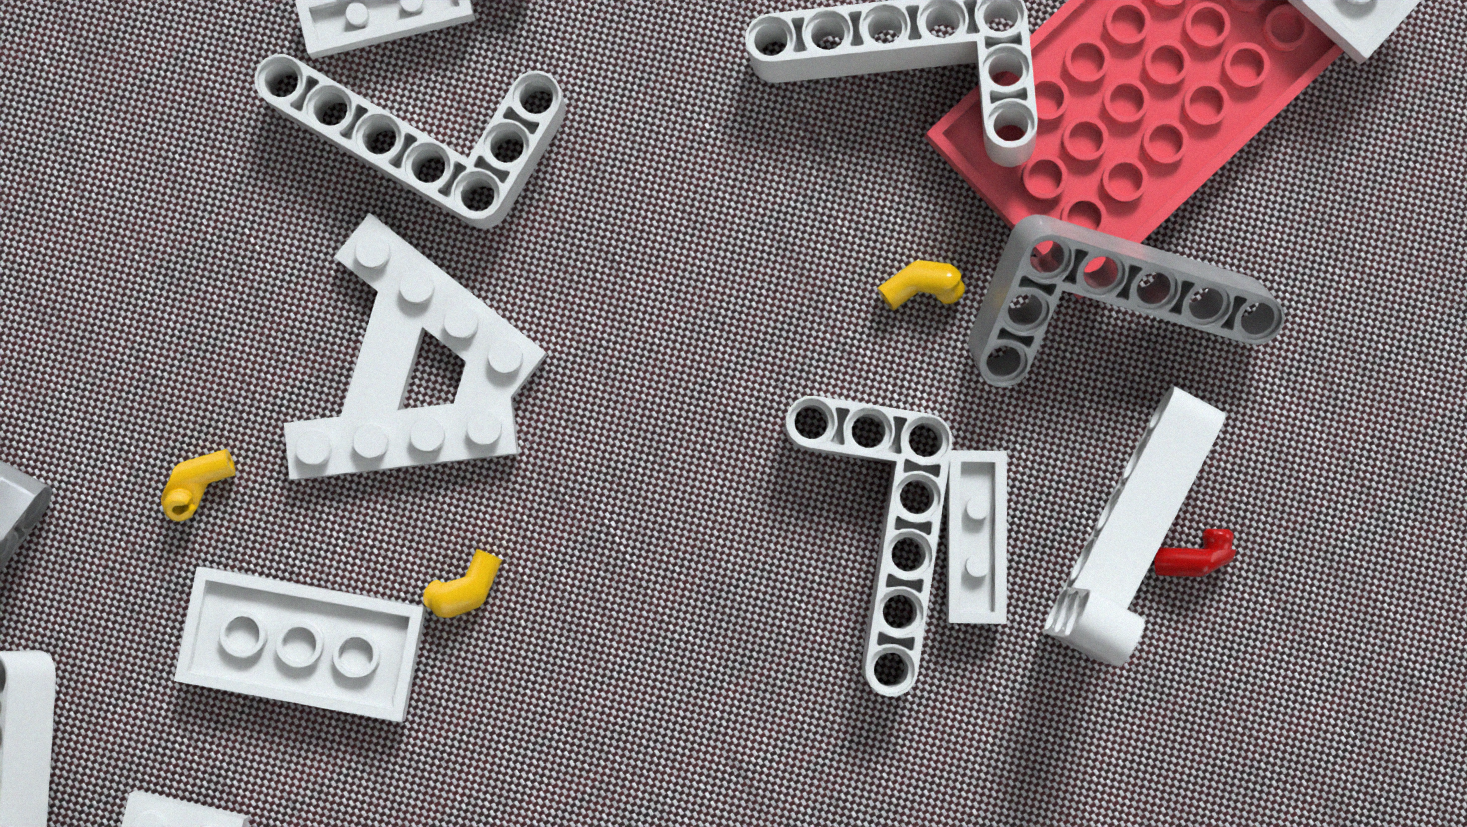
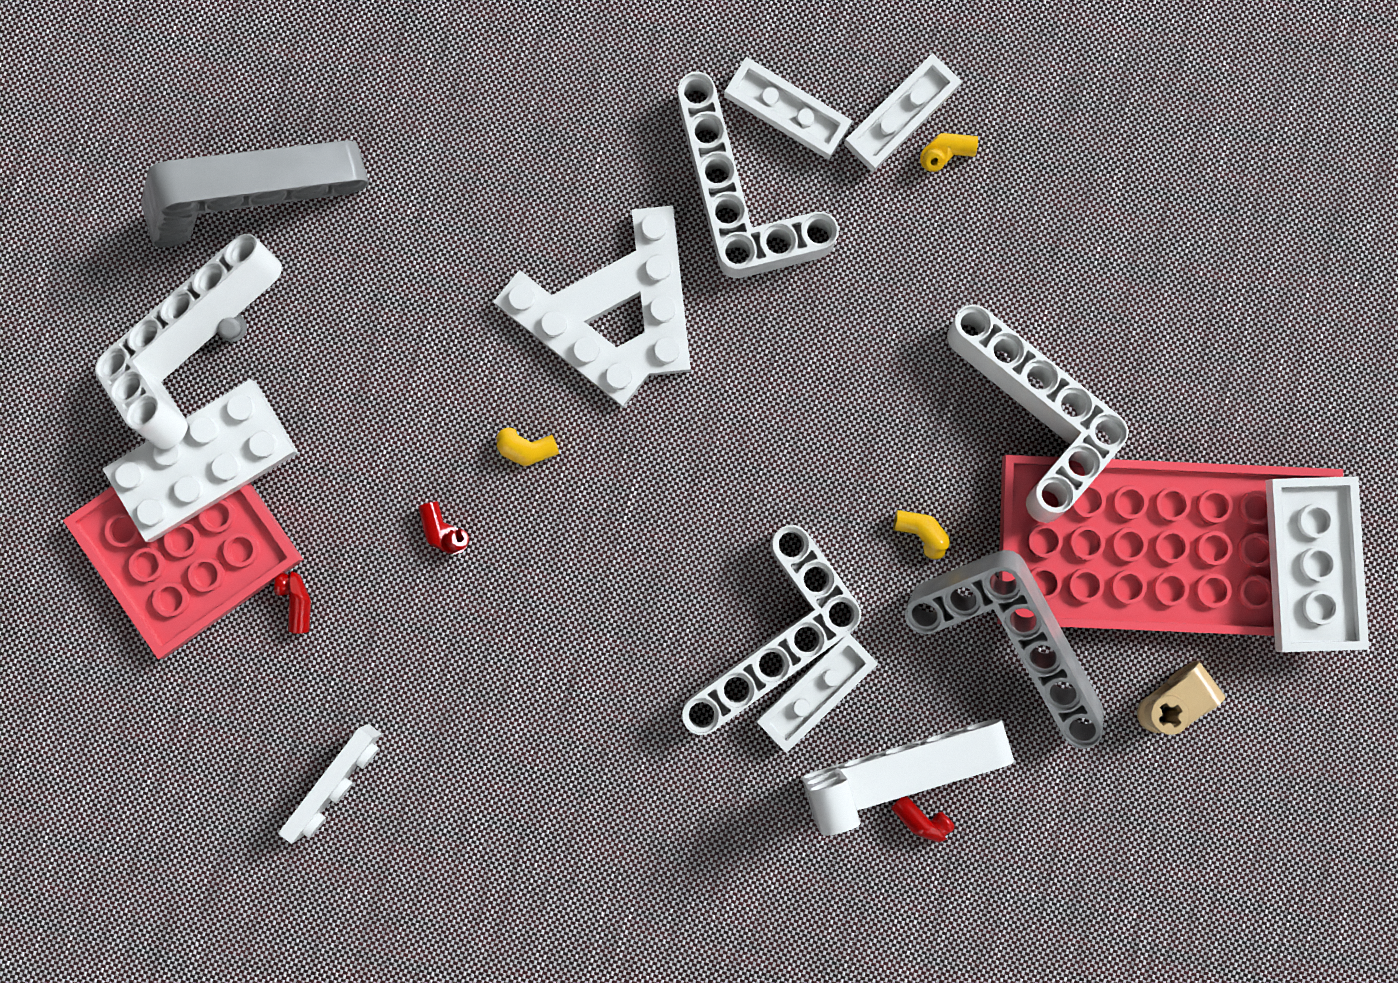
camera: 45 degrees right, 0 degrees up
(60, 762) = (232, 328): none -> light grey piece
(190, 481) = (442, 251): yellow arm -> none
(300, 644) = (413, 391): white plate -> none
(465, 753) = (440, 534): none -> red arm
(1322, 190) = (1186, 697): none -> tan piece

